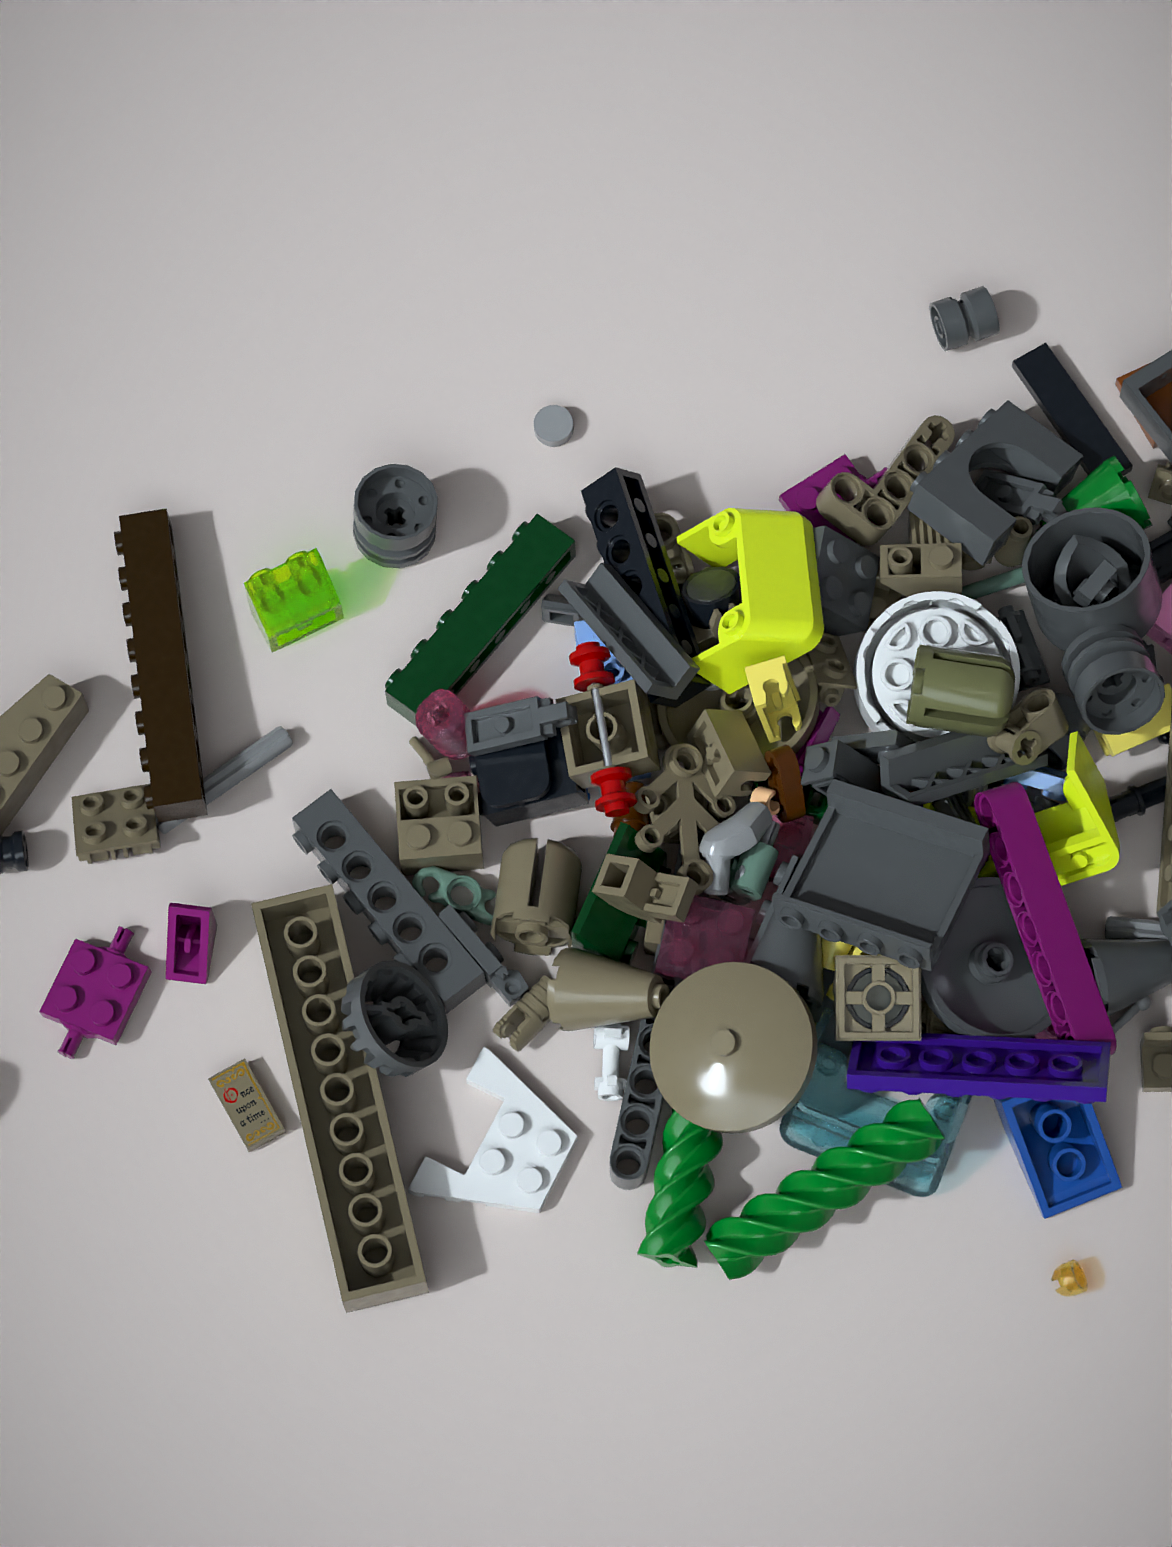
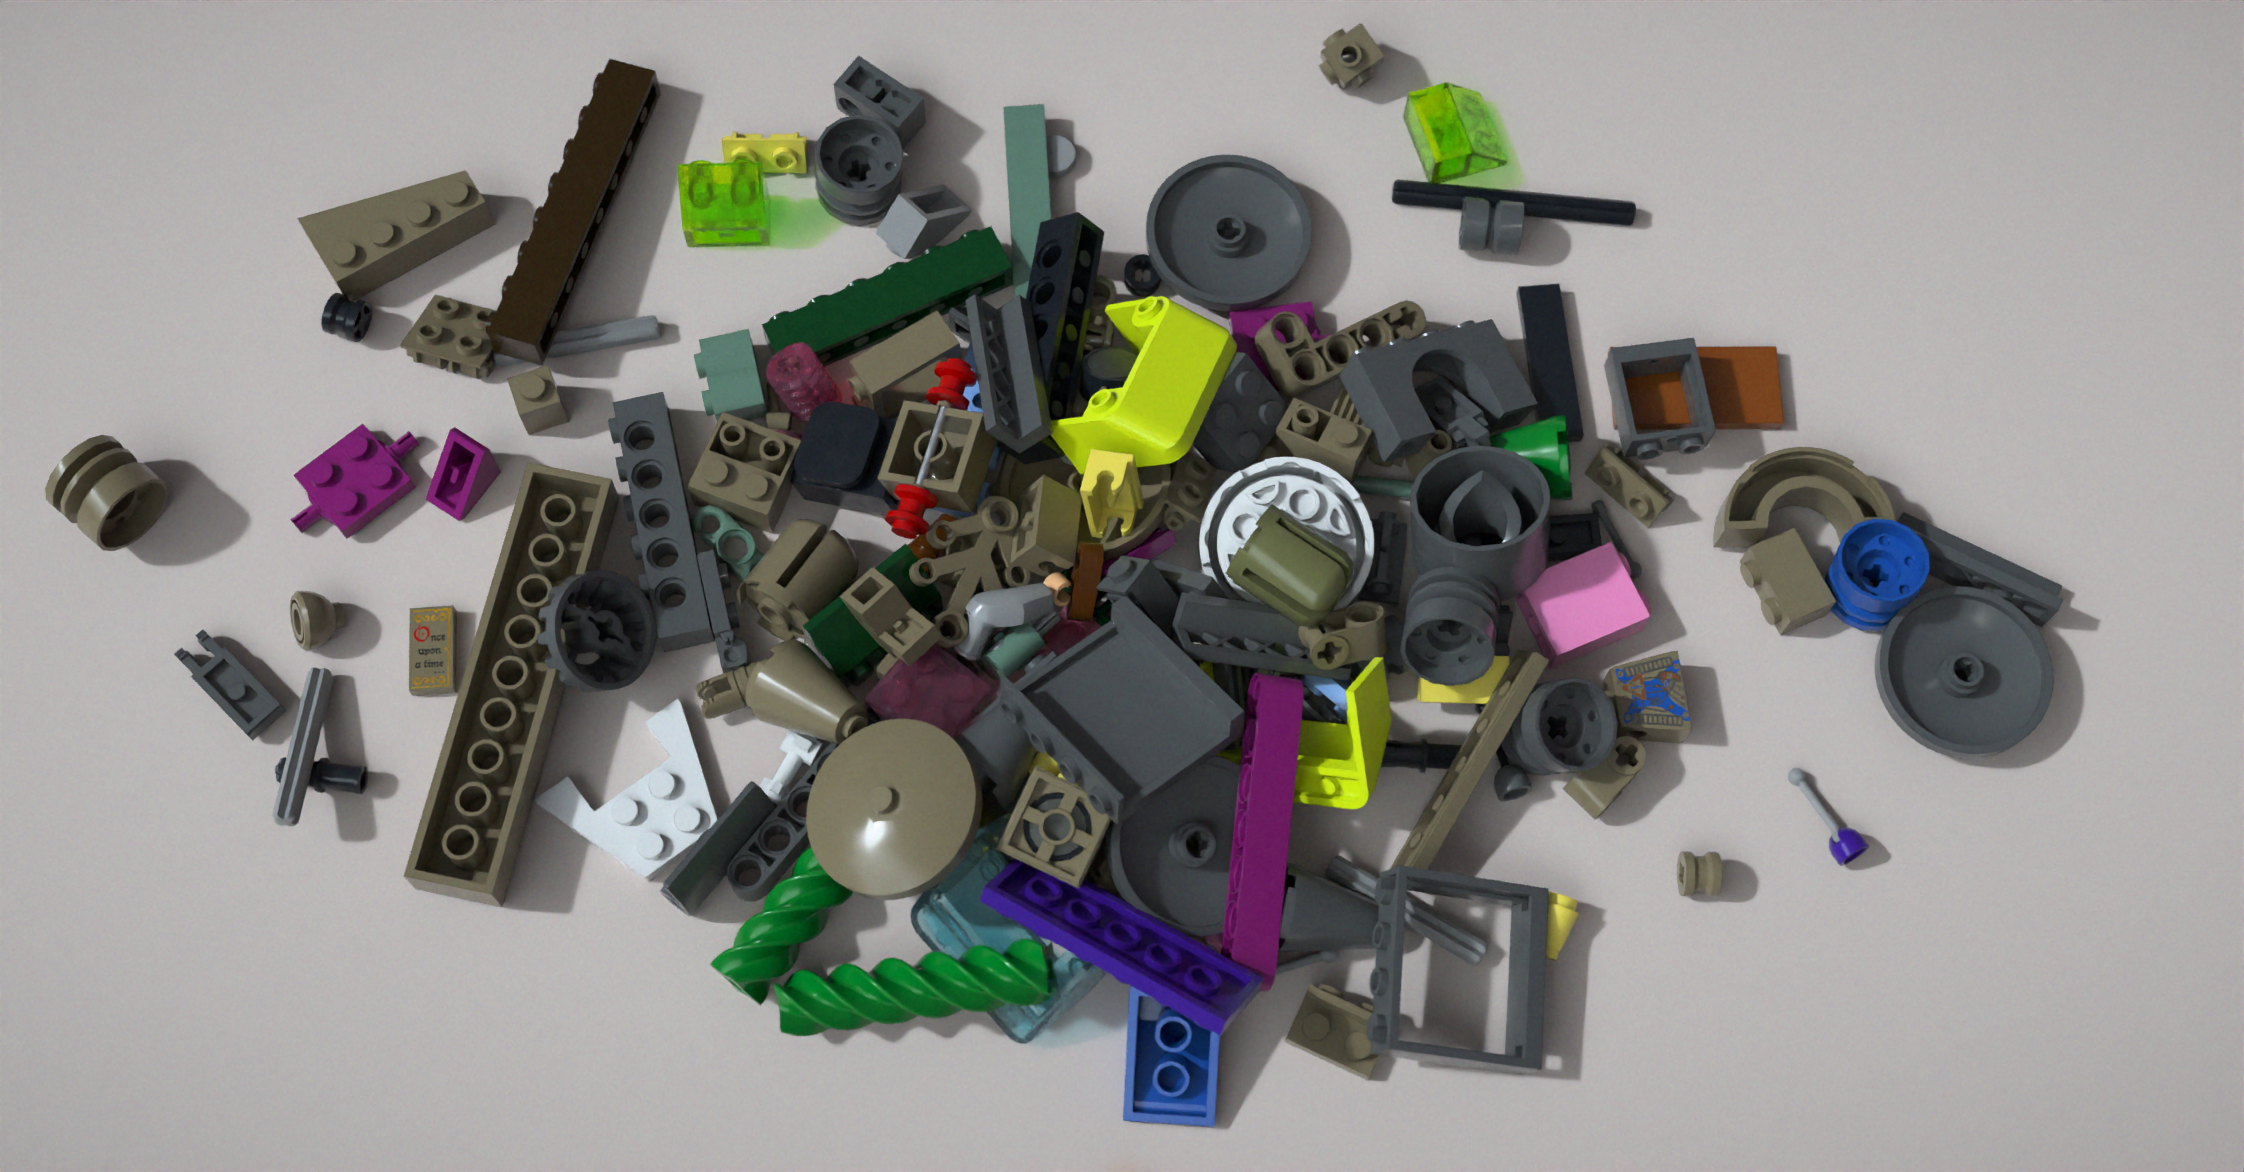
camera: 20 degrees right, 0 degrees up
(90, 1217) = (233, 687): none -> dark grey hinge
(129, 1127) = (314, 619): none -> dark tan brick
(186, 1237) = (303, 747): none -> light grey axle
(210, 1255) = (332, 776): none -> black axle
(221, 846) = (537, 400): none -> dark tan brick
(310, 531) = (778, 153): none -> light yellow hinge
(375, 443) = (875, 94): none -> dark grey brick
(379, 749) = (731, 376): none -> sand green brick
(470, 536) = (921, 220): none -> light grey slope
(516, 724) = (854, 406): dark grey hinge -> none
(535, 661) = (902, 366): none -> dark tan window
(548, 469) = (1026, 185): none -> sand green tile
(591, 1155) = (715, 849): none -> dark grey panel
(681, 485) = (1141, 288): none -> black bush
(743, 425) = (1228, 232): none -> dark grey dish
(780, 216) = (1353, 43): none -> dark tan brick
(888, 251) = (1452, 132): none -> clear neon green slope
(992, 279) = (1535, 203): none -> black axle
(1096, 587) = (1476, 527): dark grey plate -> none

